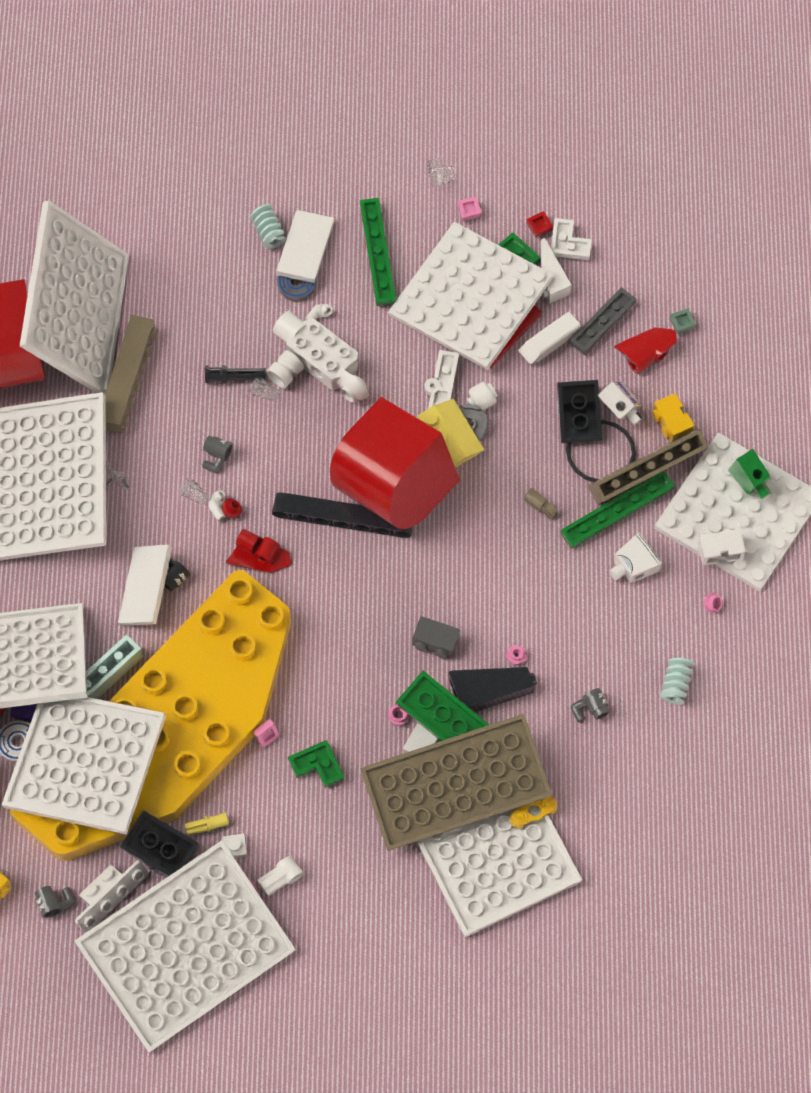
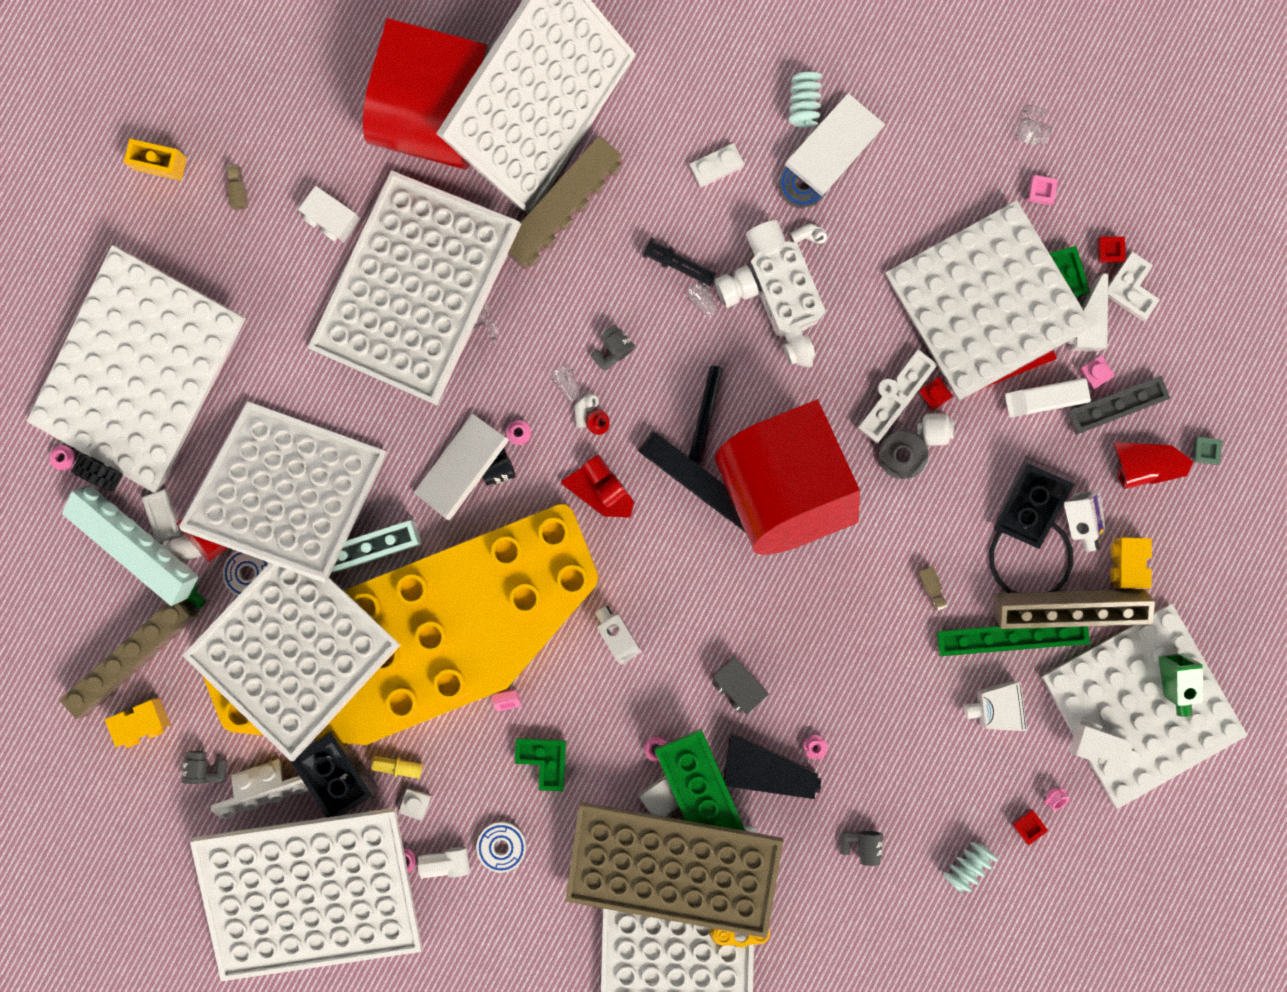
camera: 30 degrees right, 20 degrees up
(177, 549) = (522, 439): none -> bright pink plate
(227, 299) = (717, 165): none -> white plate
(308, 463) = (705, 413): none -> black axle
(314, 832) = (498, 861): none -> white tile
(327, 646) = (622, 645): none -> white torso
(377, 252) = (912, 191): green plate -> none
(455, 429) = (878, 458): light yellow slope -> none
(469, 375) = (935, 394): none -> red plate
(576, 307) = (1096, 372): none -> bright pink plate
(705, 632) = (1029, 827): none -> red plate

